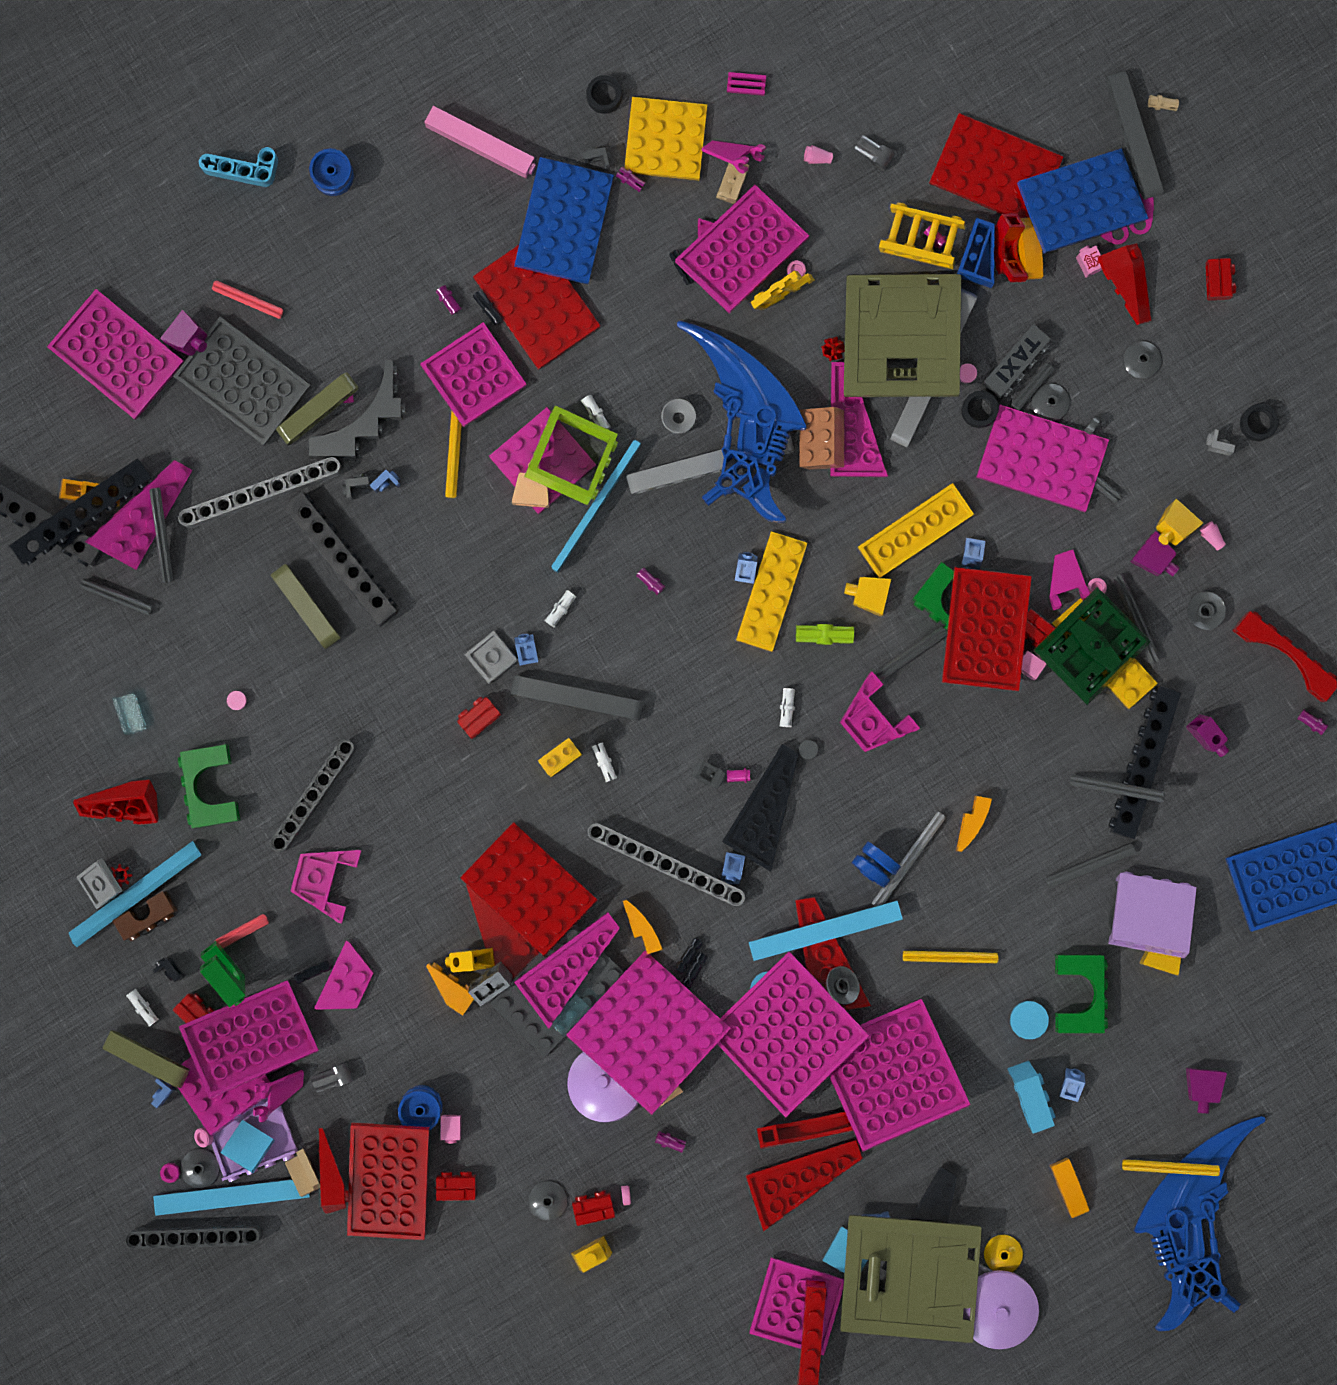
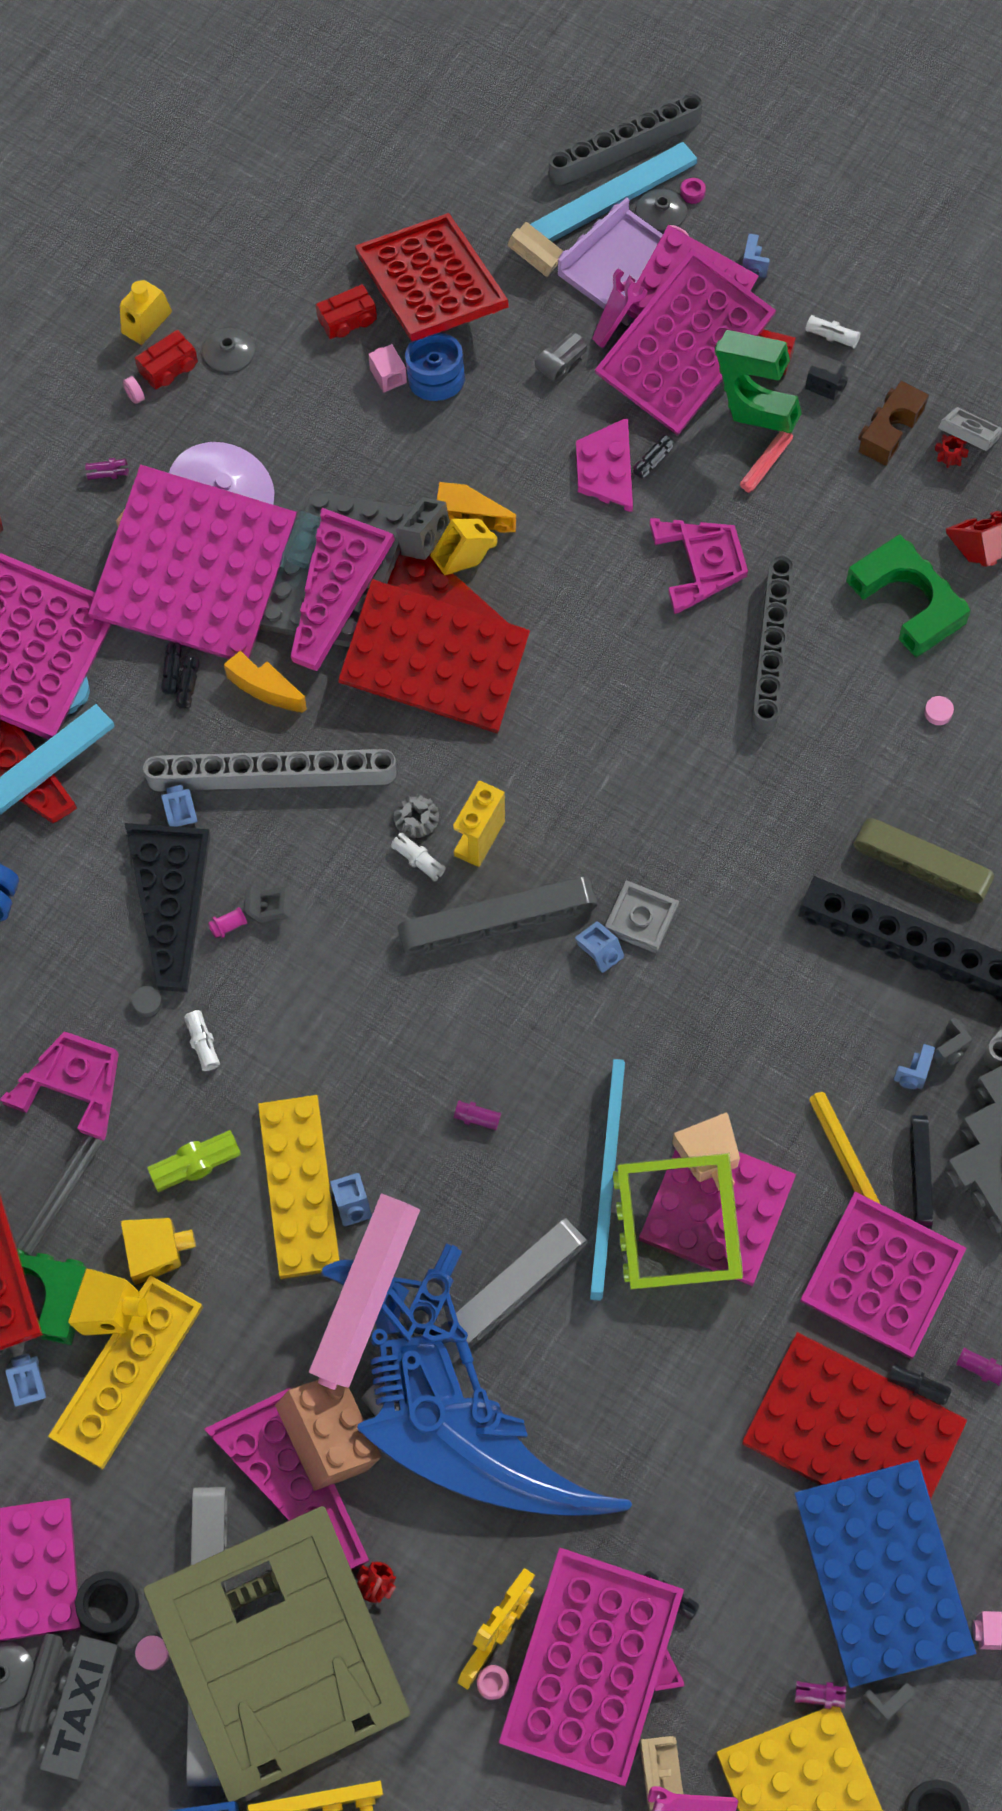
camera: 155 degrees right, 20 degrees down
(134, 894) = (920, 442): medium azure tile -> none
(146, 1059) = (793, 275): olive beam -> none
(247, 1146) = (618, 243): medium azure tile -> none
(331, 1184) = (497, 245): red wedge -> none
(418, 422) = (921, 1170): none -> black beam
(479, 717) = (614, 831): red brick -> none
(560, 608) = (582, 1020): white pin -> none
(594, 412) = (678, 1309): white pin -> none
(598, 797) = (411, 827): none -> light grey gear
(678, 406) = (559, 1346): light grey piece -> none
(768, 493) = (364, 1292): none -> bright pink brick
(910, 571) = (105, 1304): none -> yellow torso

